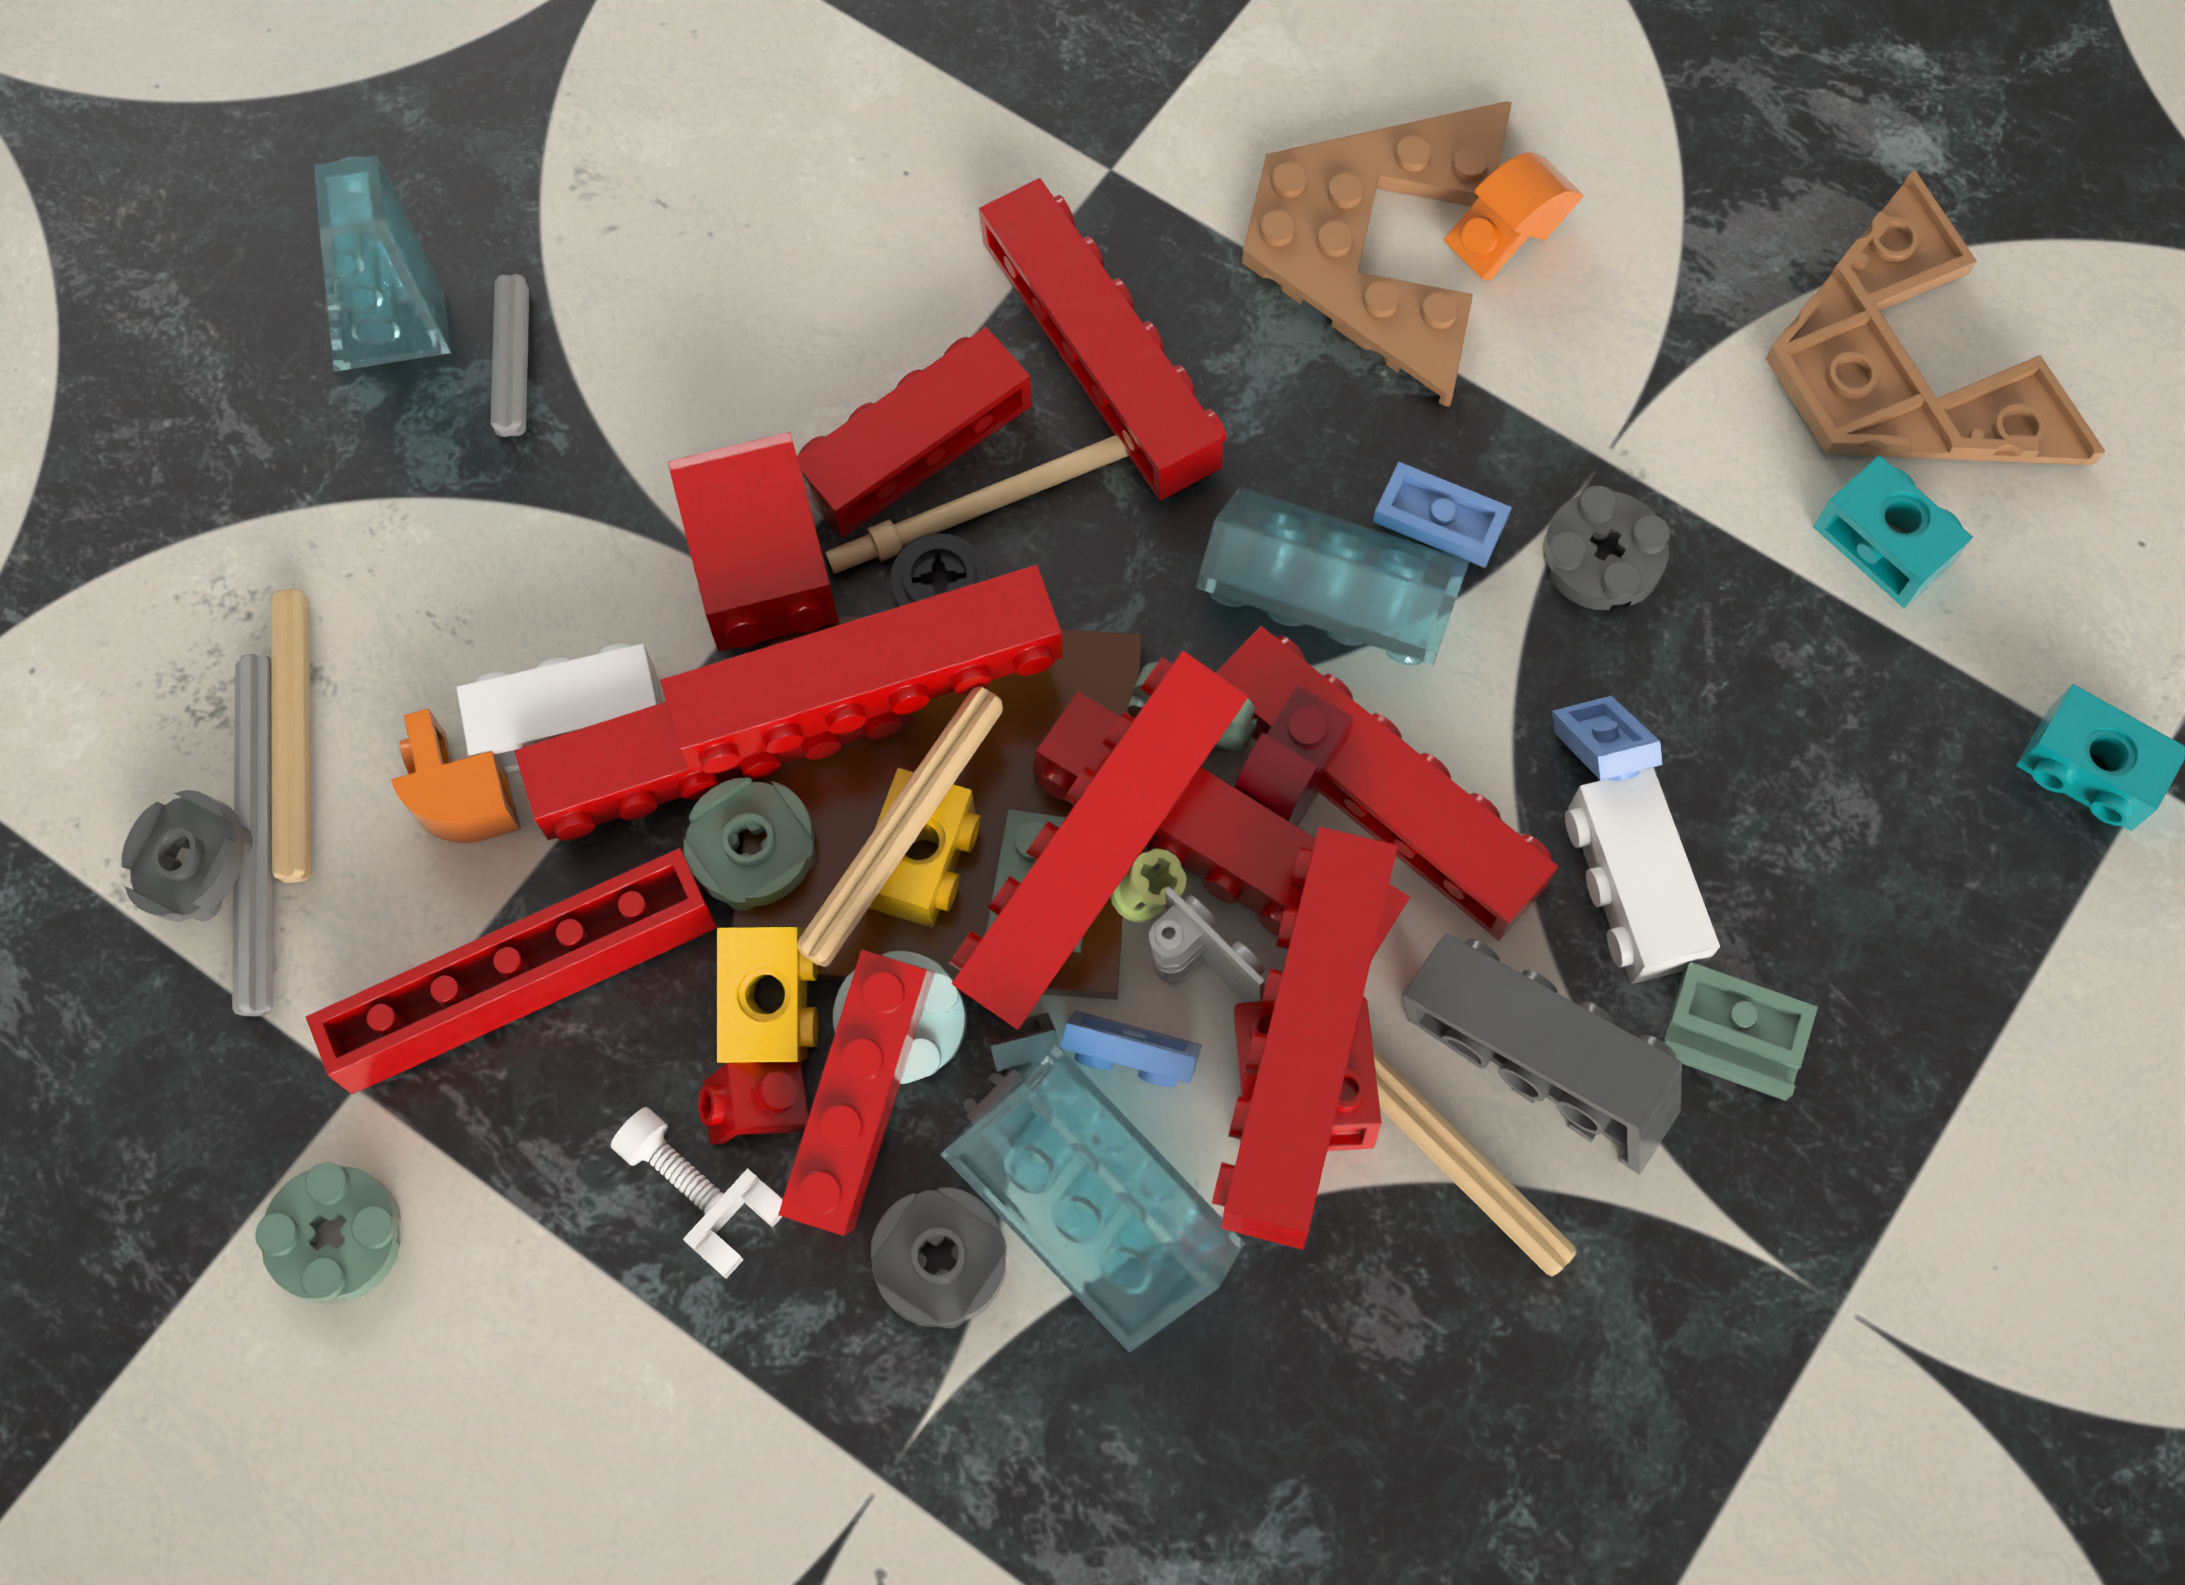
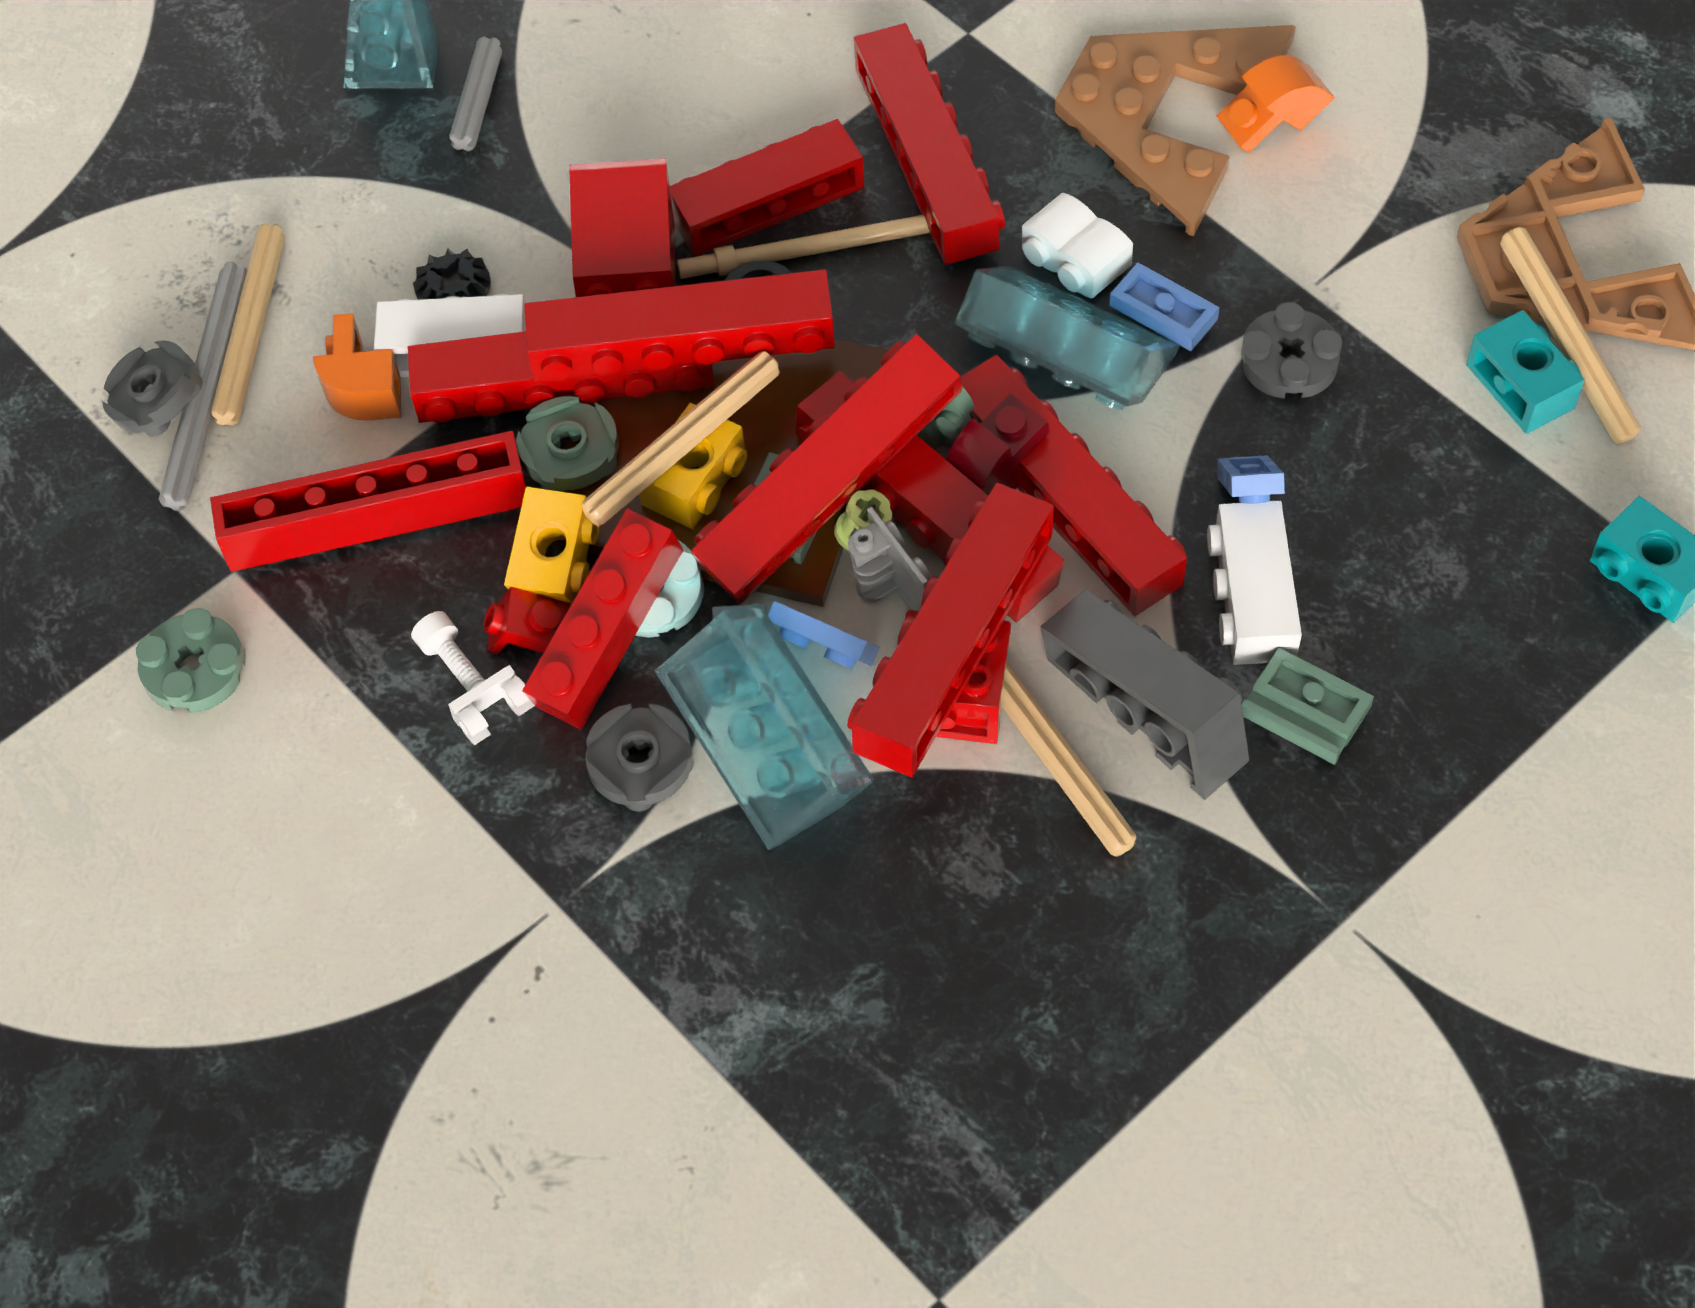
camera: 15 degrees right, 10 degrees down
(565, 610) = (473, 275): none -> black gear
(1317, 449) = (1076, 245): none -> white brick
(1936, 474) = (1570, 335): none -> tan axle

